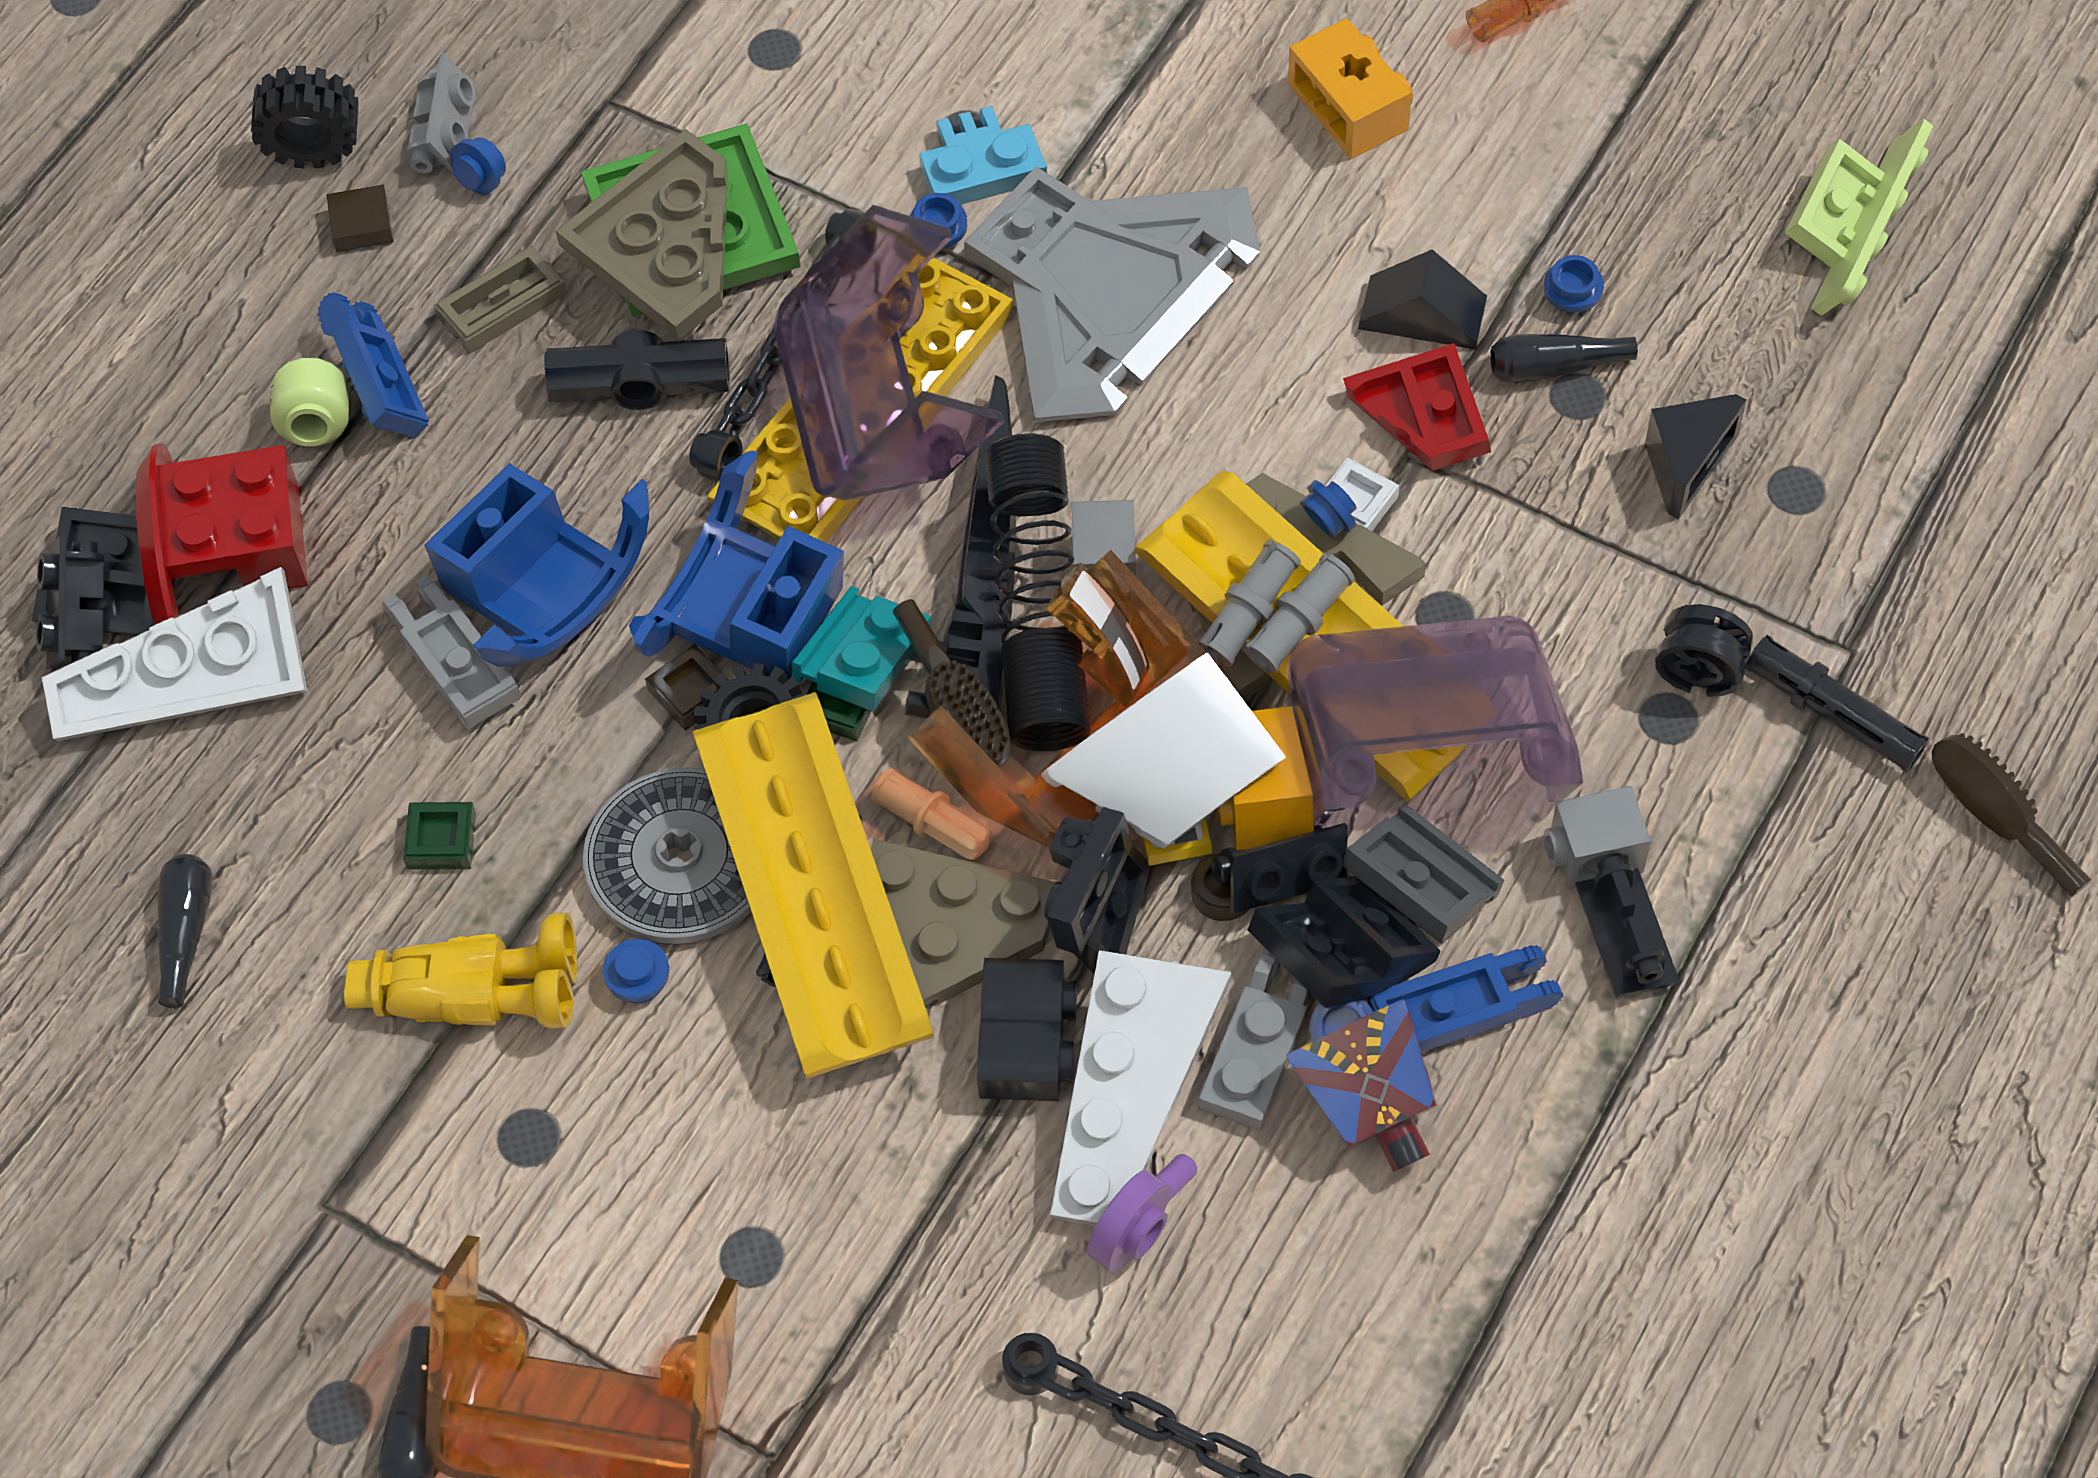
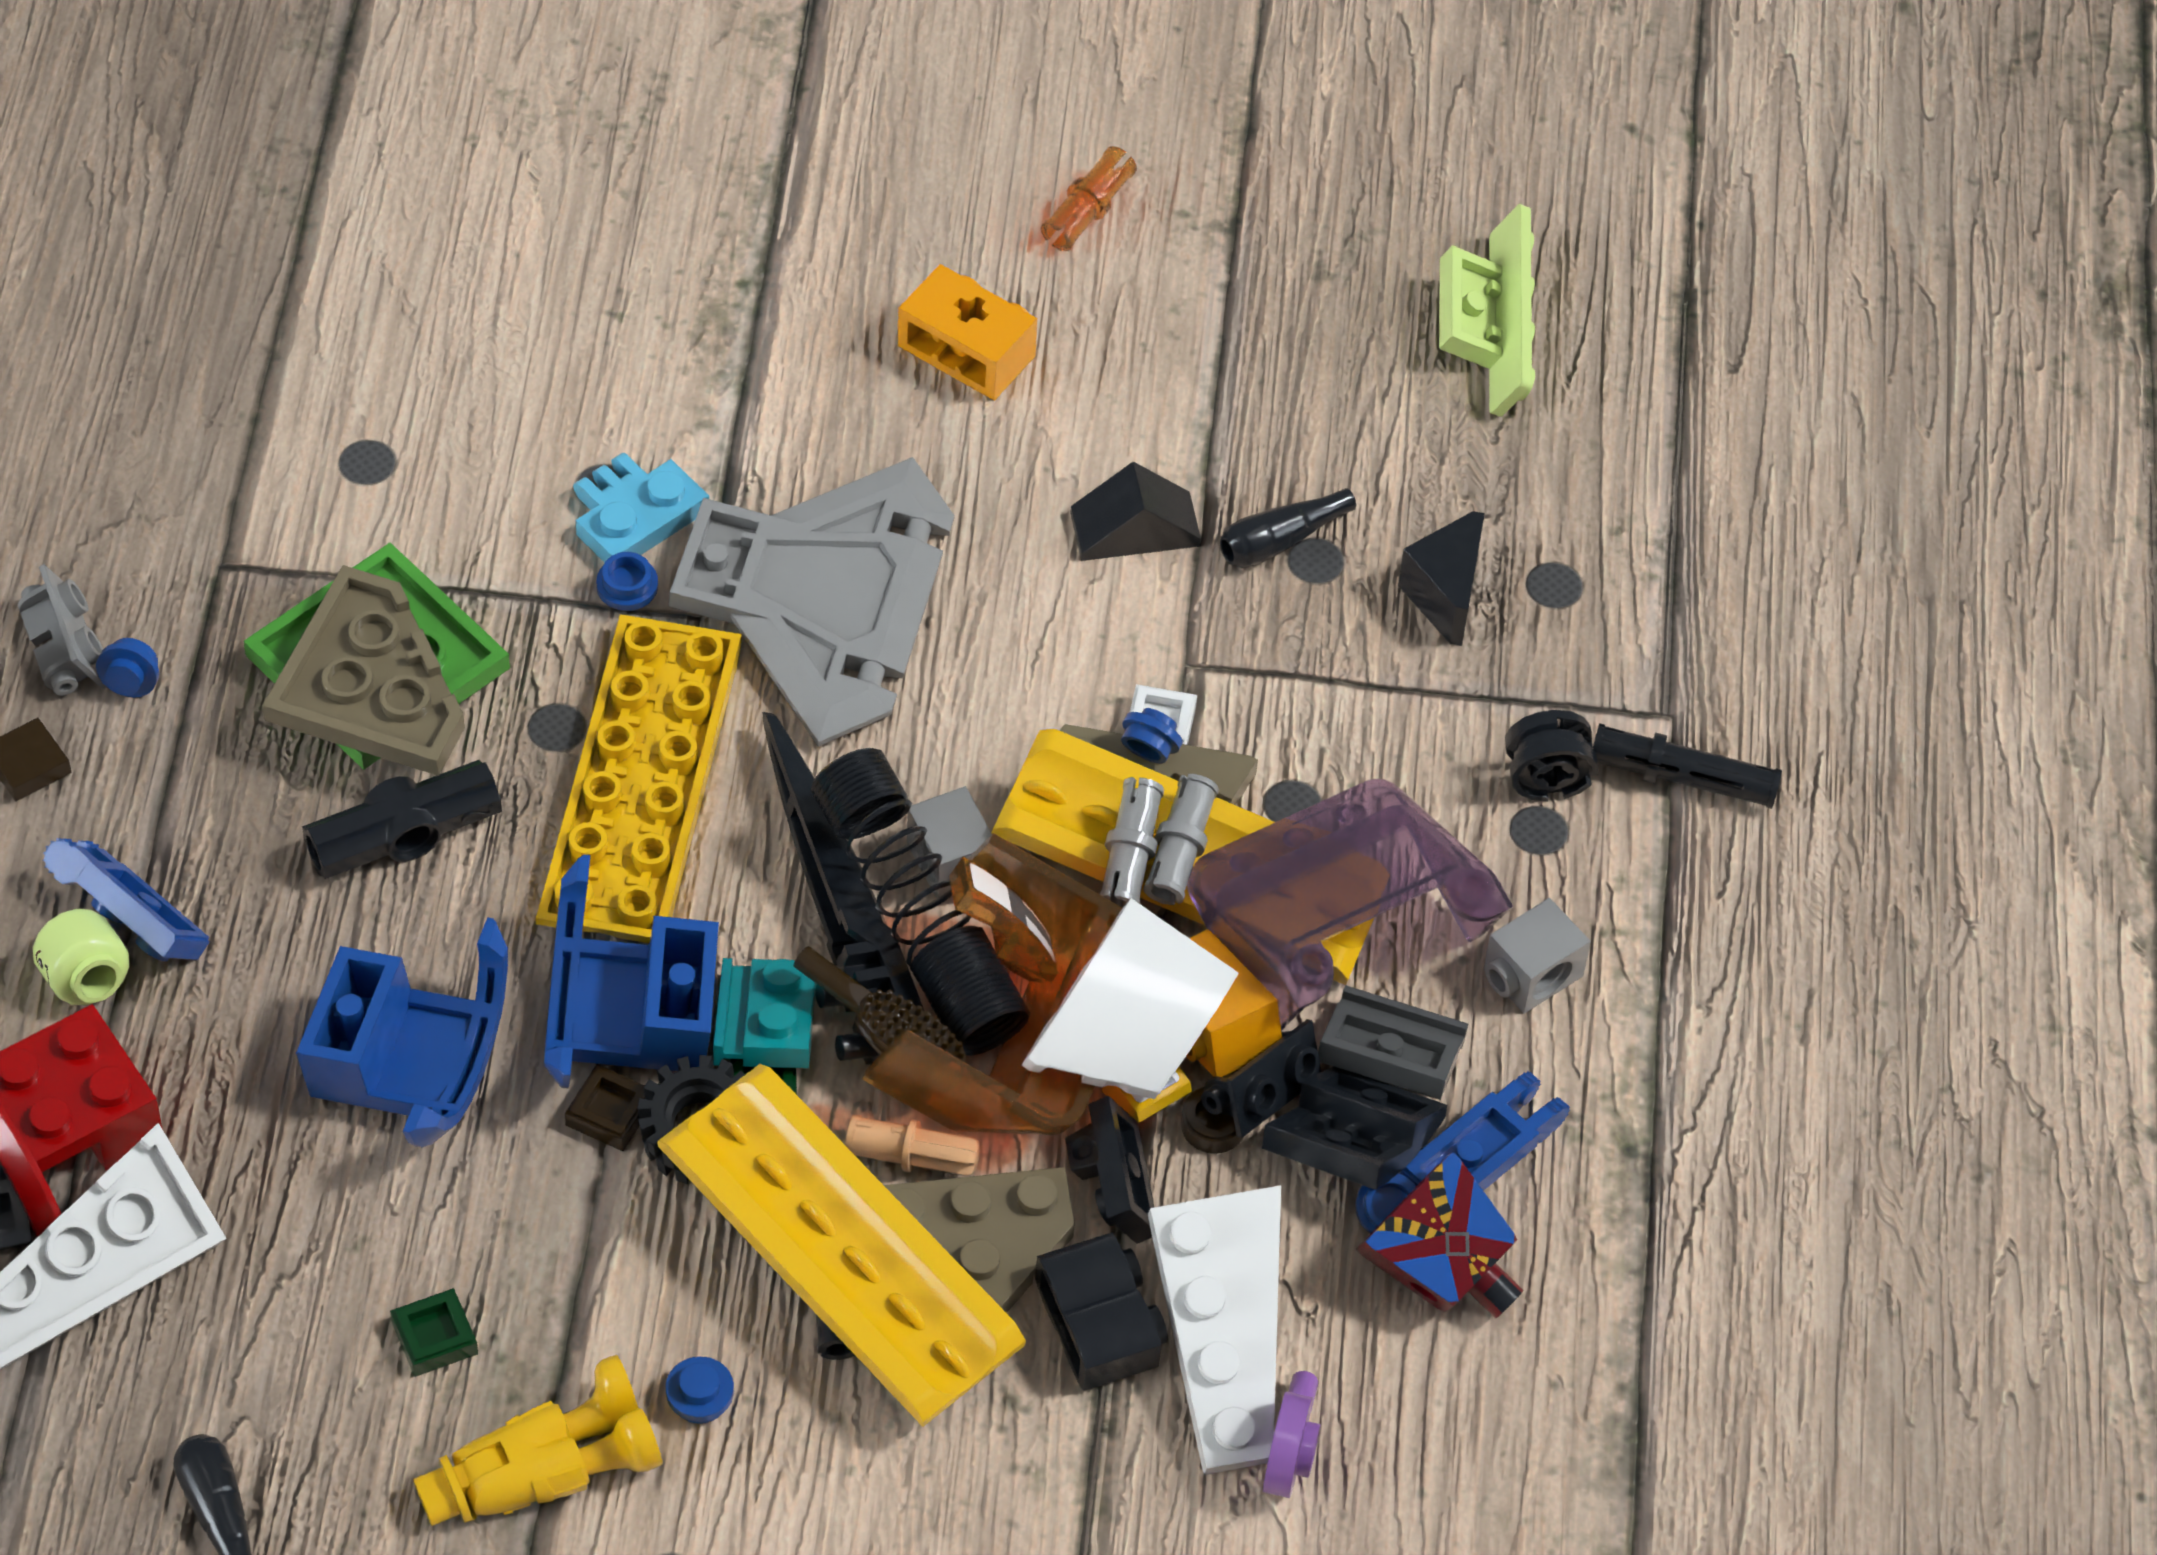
camera: 30 degrees left, 5 degrees down
(445, 651) = (356, 1152): light grey hinge -> none
(506, 304) = (191, 833): dark tan tile -> none
(631, 865) = (669, 1314): piece -> none
(717, 449) = (524, 872): black piece -> none
(849, 370) = (630, 763): windscreen -> none
(1094, 859) = (1102, 1121): black hinge -> none
(1255, 1049) = (1317, 1253): light grey hinge -> none
(1424, 406) = (1185, 613): red wing -> none
(1573, 284) = (1266, 456): blue plate -> none
(1626, 929) = (1596, 1031): black hinge -> none
(2001, 805) = (1868, 808): dark brown piece -> none

